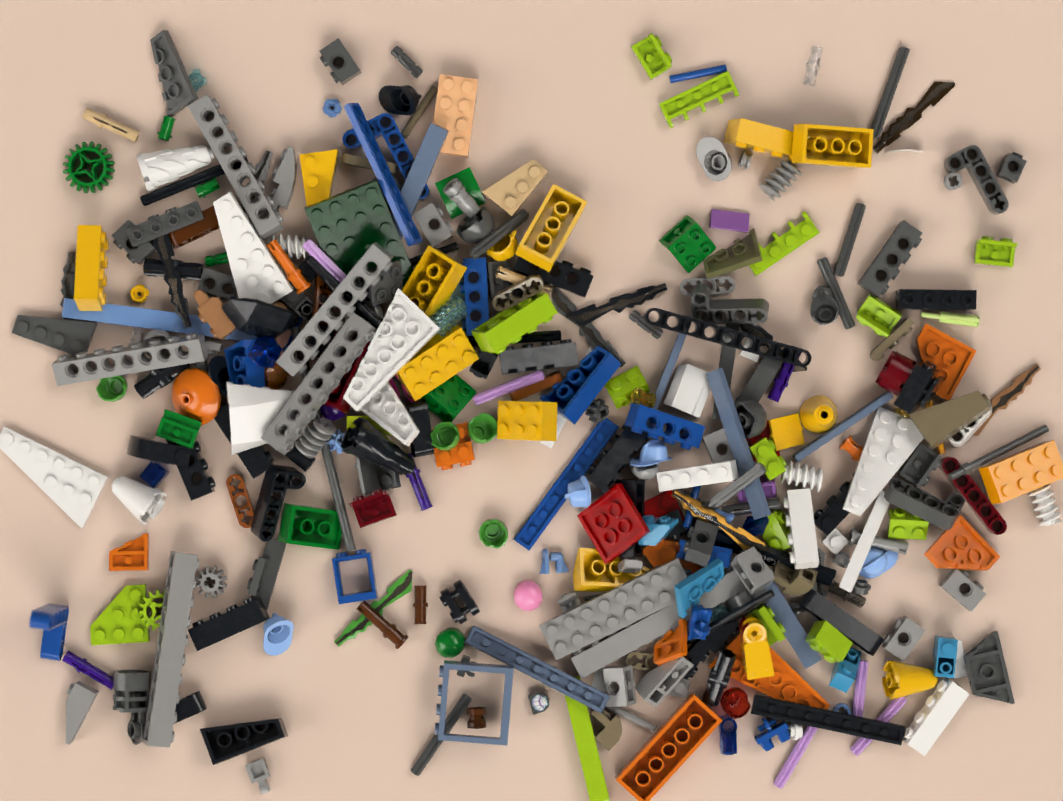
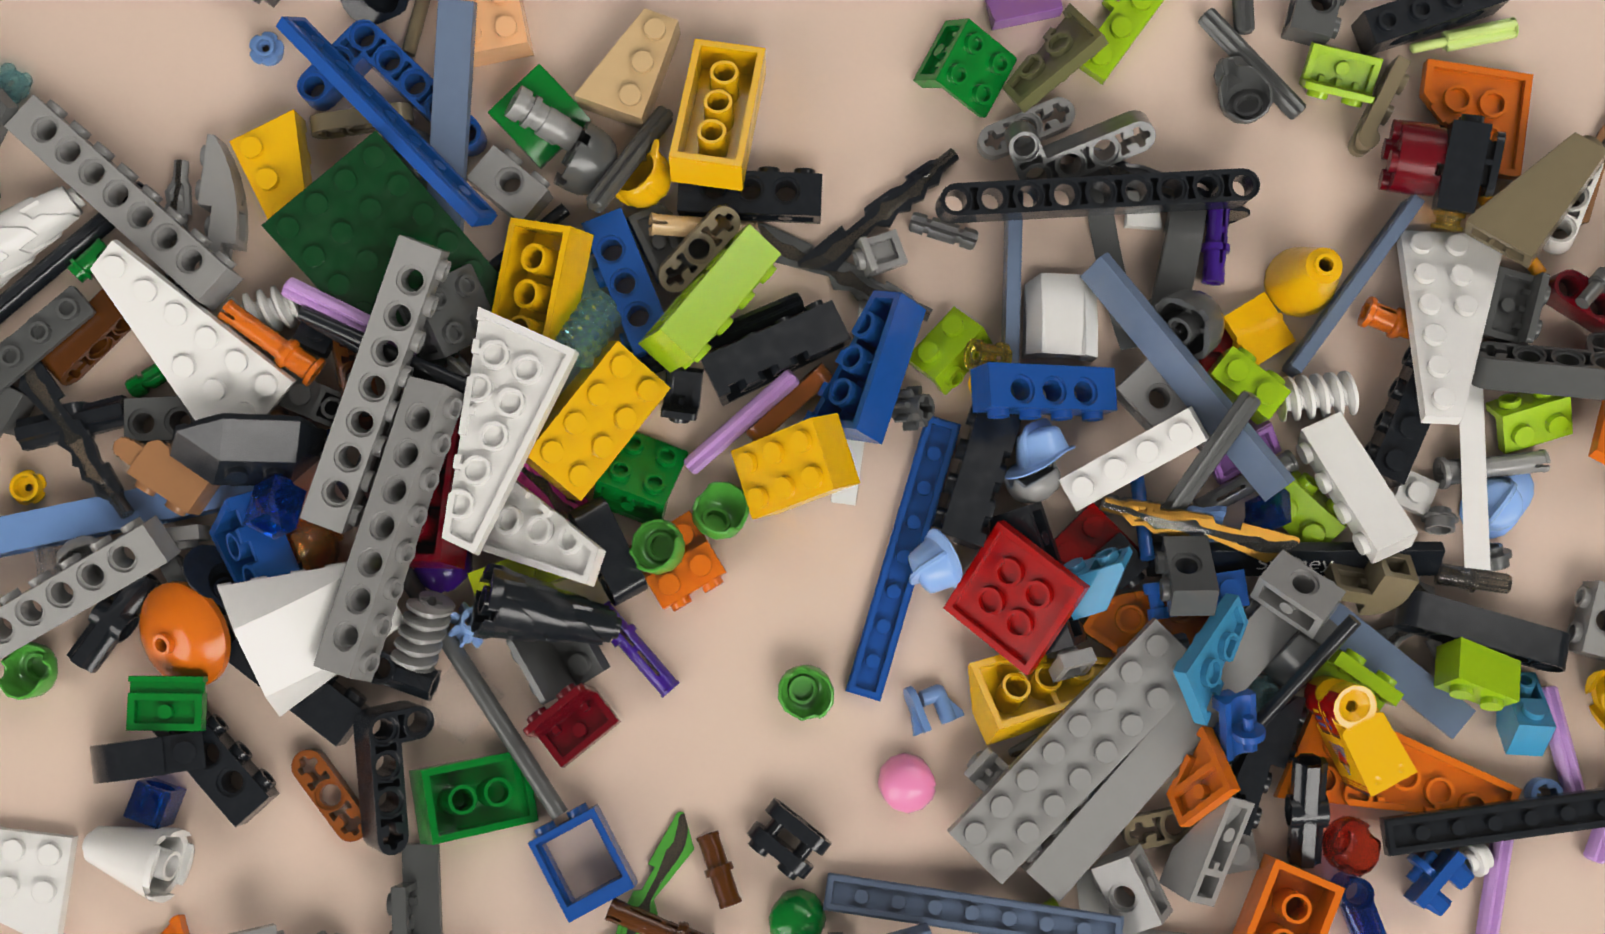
camera: 25 degrees left, 5 degrees down
(608, 325) = (879, 253): none -> light grey bracket

